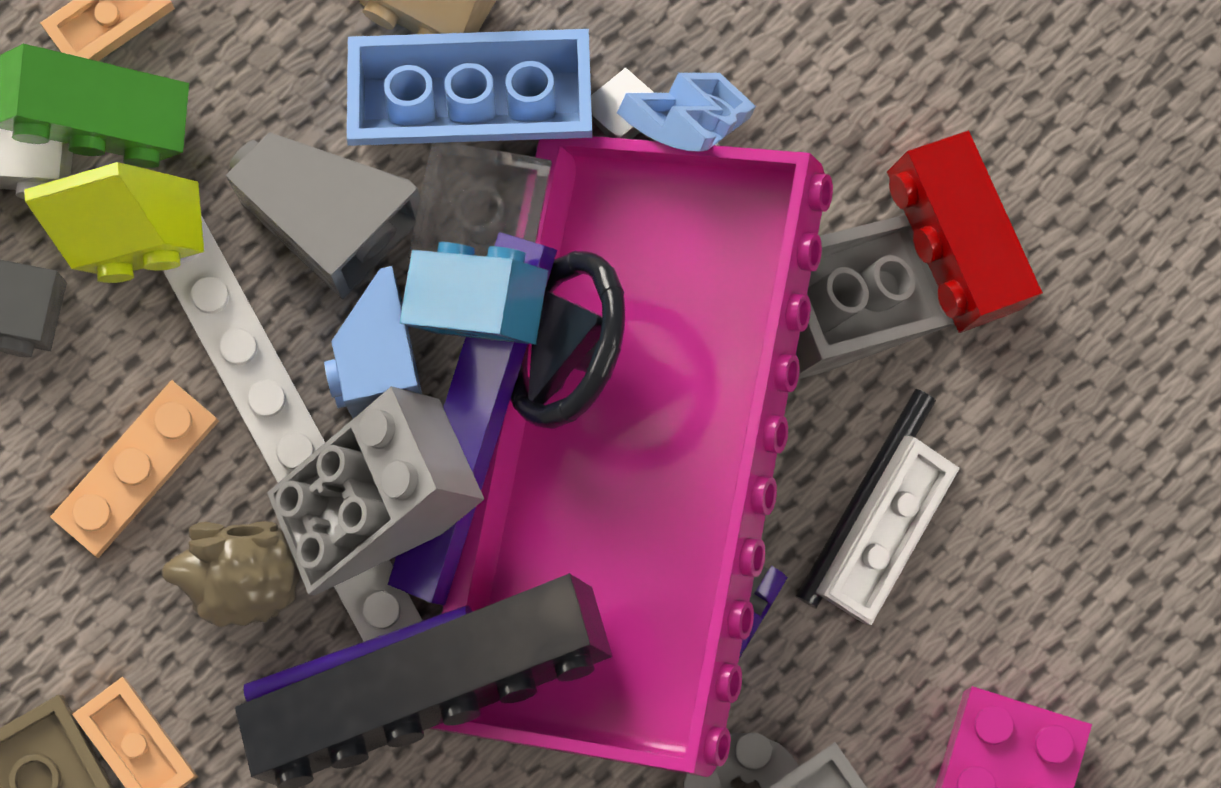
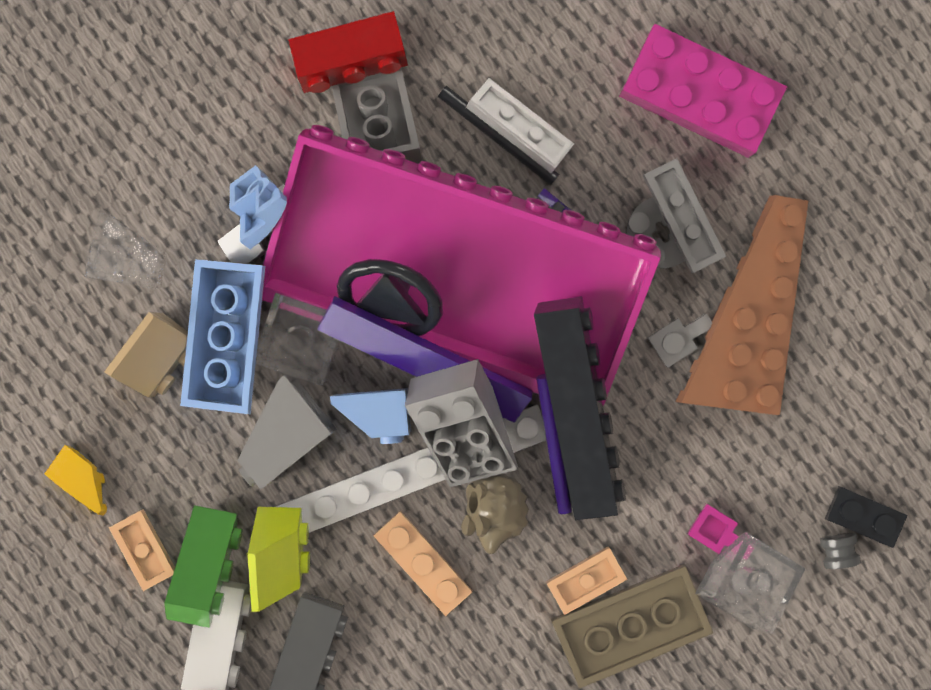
camera: 85 degrees left, 10 degrees up
(474, 294) = (357, 349): brick -> none

